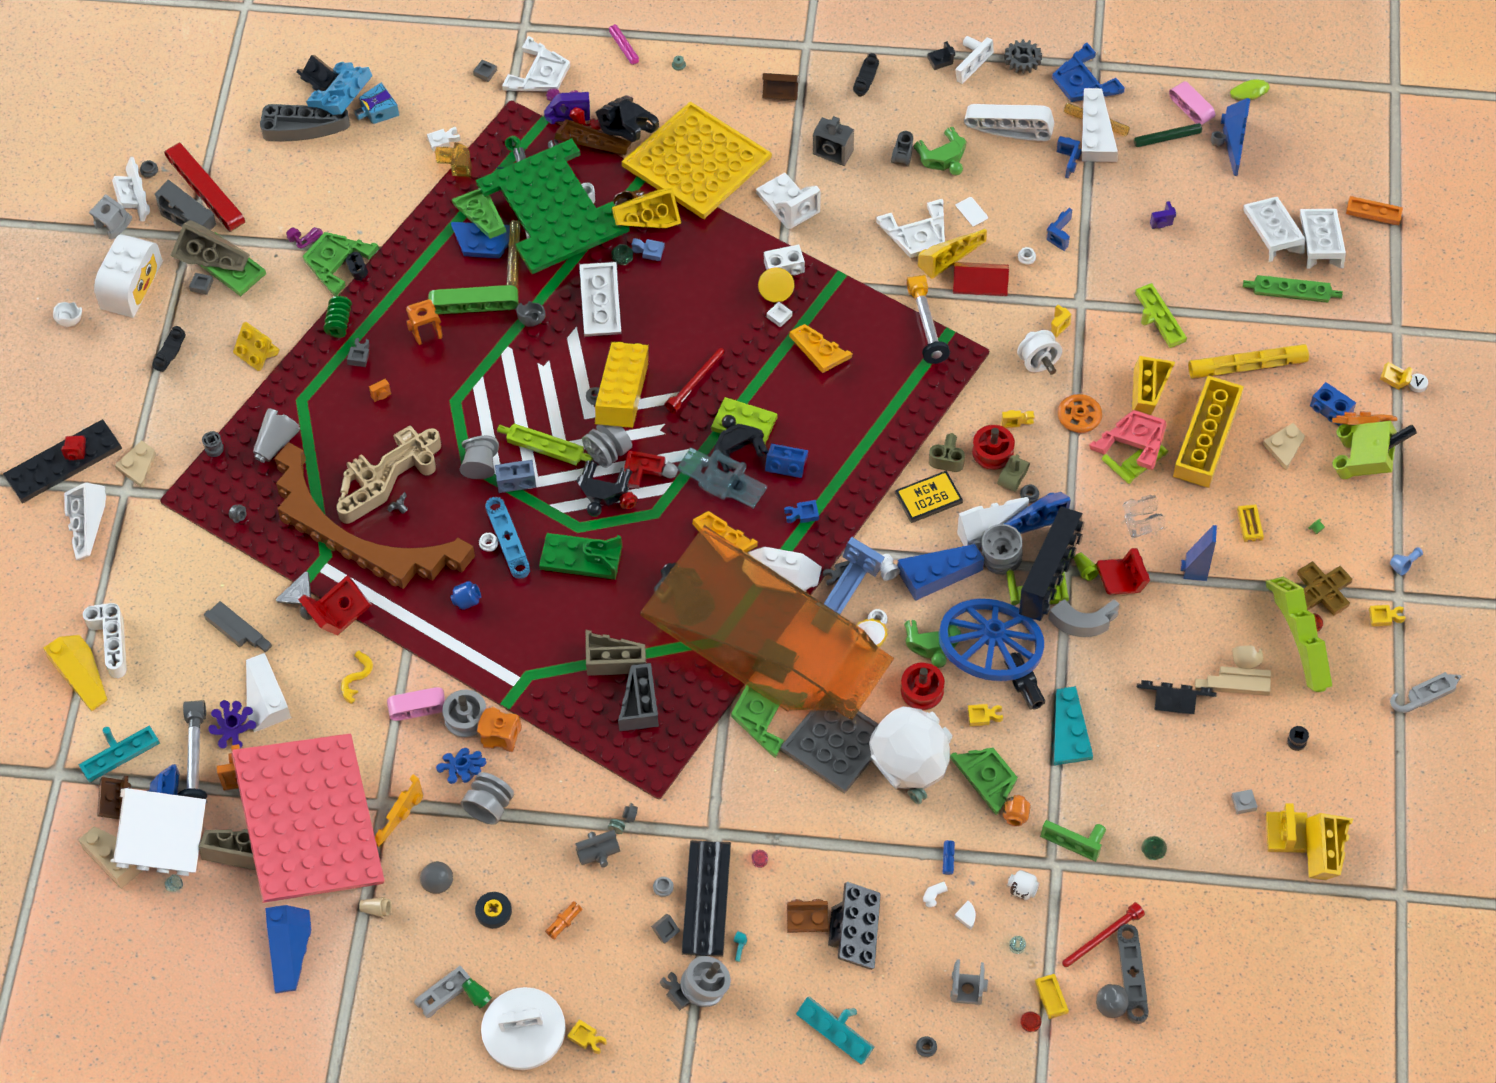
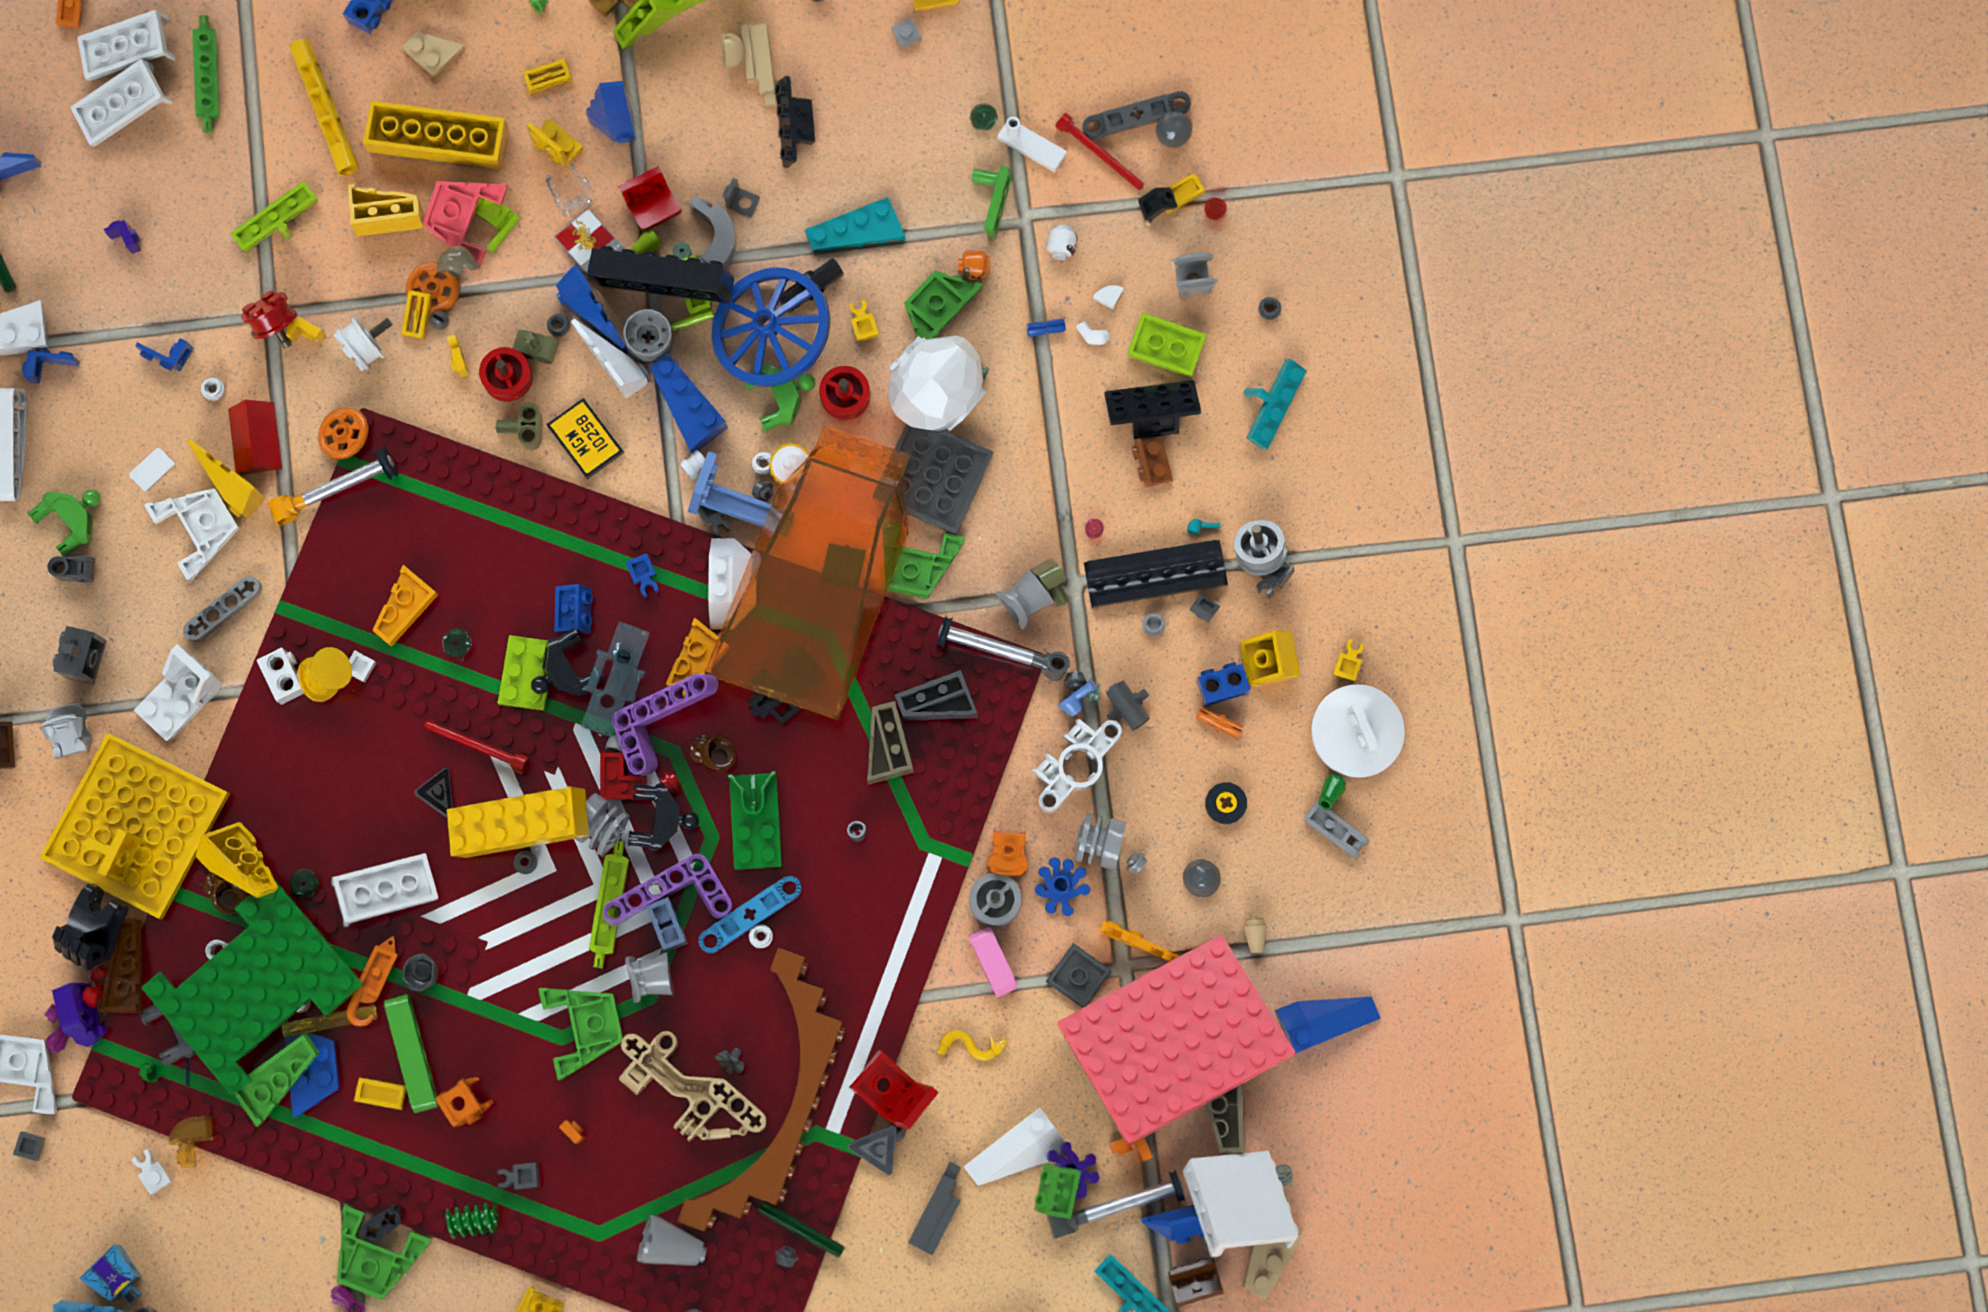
camera: 105 degrees left, 20 degrees up
(216, 703) = (1057, 1191): none -> bright green bracket
(253, 530) = (801, 1229): none -> dark green axle
(386, 766) = (1078, 976): none -> dark grey tile
(451, 276) = (380, 1093): none -> yellow tile
(458, 419) = (593, 1023): none -> bright green wing
(464, 827) = (1136, 862): none -> light grey plate
(466, 595) = (842, 940): blue head -> none
(535, 283) = (374, 979): none -> orange plate
(545, 482) = (669, 888): none -> medium lavender beam
(548, 623) = (862, 830): none -> dark grey hinge
(559, 780) = (1096, 747): none -> white piece
(592, 928) = (1225, 690): none -> blue brick
(606, 972) = (1270, 658): none -> yellow slope
(611, 807) = (1072, 703): none -> medium blue bar
(643, 533) = (713, 752): none -> reddish brown hair
(651, 249) = (289, 847): medium blue plate -> none
(665, 345) = (437, 792): none -> piece
(673, 136) = (117, 856): none -> yellow bracket
(675, 480) = (656, 710): none -> medium lavender beam
(694, 718) = (1005, 650): none -> piece
(709, 785) = (1025, 598): none -> light grey hat
(723, 807) = (1051, 577): none -> olive beam
(777, 127) = (67, 730): none -> light grey piece
(780, 373) = (453, 636): none -> clear green plate
(845, 239) = (224, 612): none -> light grey beam
(853, 611) = (762, 490): none -> dark grey plate
(910, 951) = (1166, 345): none -> lime plate
(970, 333) = (353, 445): none -> orange plate
(1012, 944) = (1130, 242): clear light blue hinge -> none
(1044, 972) = (1157, 202): none -> black bracket
(1054, 415) = (438, 325): none -> dark grey hinge
(1056, 398) = (424, 318): none -> yellow tile
(1074, 294) = (270, 316): none -> red wheel
(1075, 593) = (682, 246): none -> sand green piece
(1096, 425) = (455, 259): none -> dark tan hair
(1100, 528) = (583, 235): none -> flag
(1117, 638) = (732, 196): none -> dark grey bracket
(1121, 881) = (1031, 144): none -> white piece
(1187, 514) = (555, 141): none -> yellow bracket

